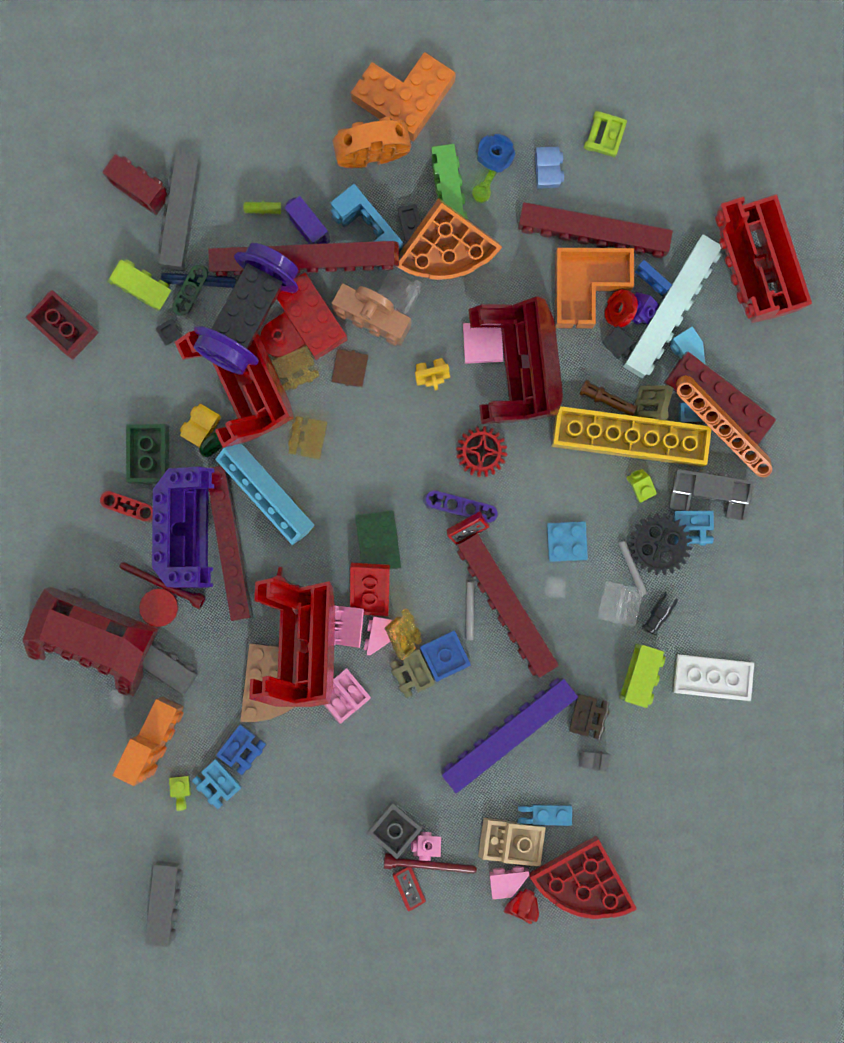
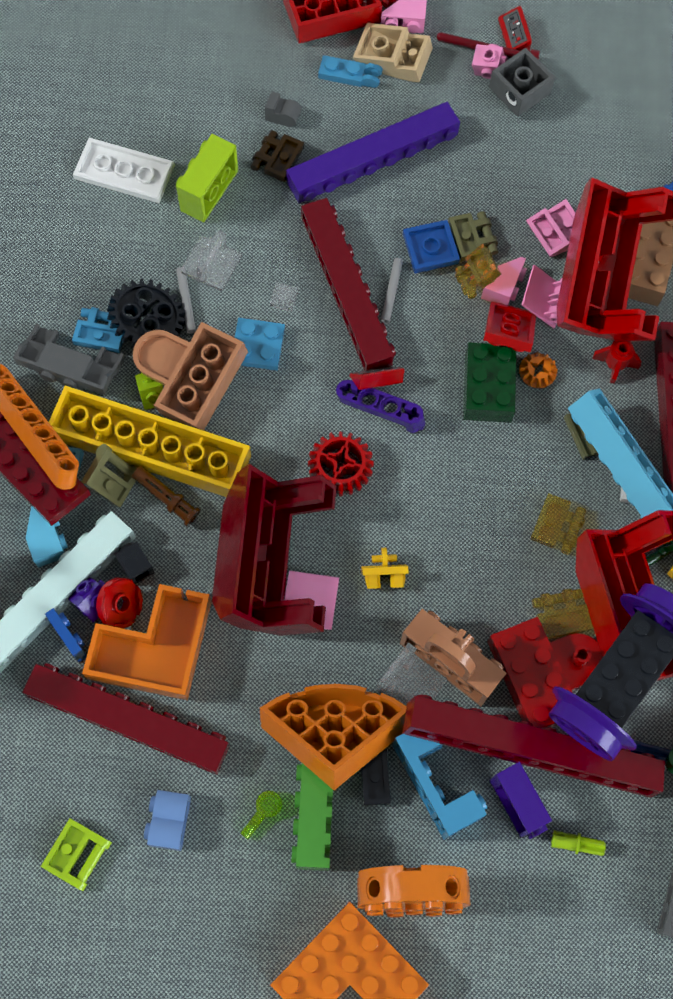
camera: 170 degrees left, 15 degrees down
(336, 556) = (542, 379): none -> orange gear
(350, 368) = (489, 603): reddish brown piece -> none
(495, 162) = (221, 856): blue plate -> none
(612, 497) = (192, 372): none -> nougat brick
(658, 616) = (170, 241): black piece -> none

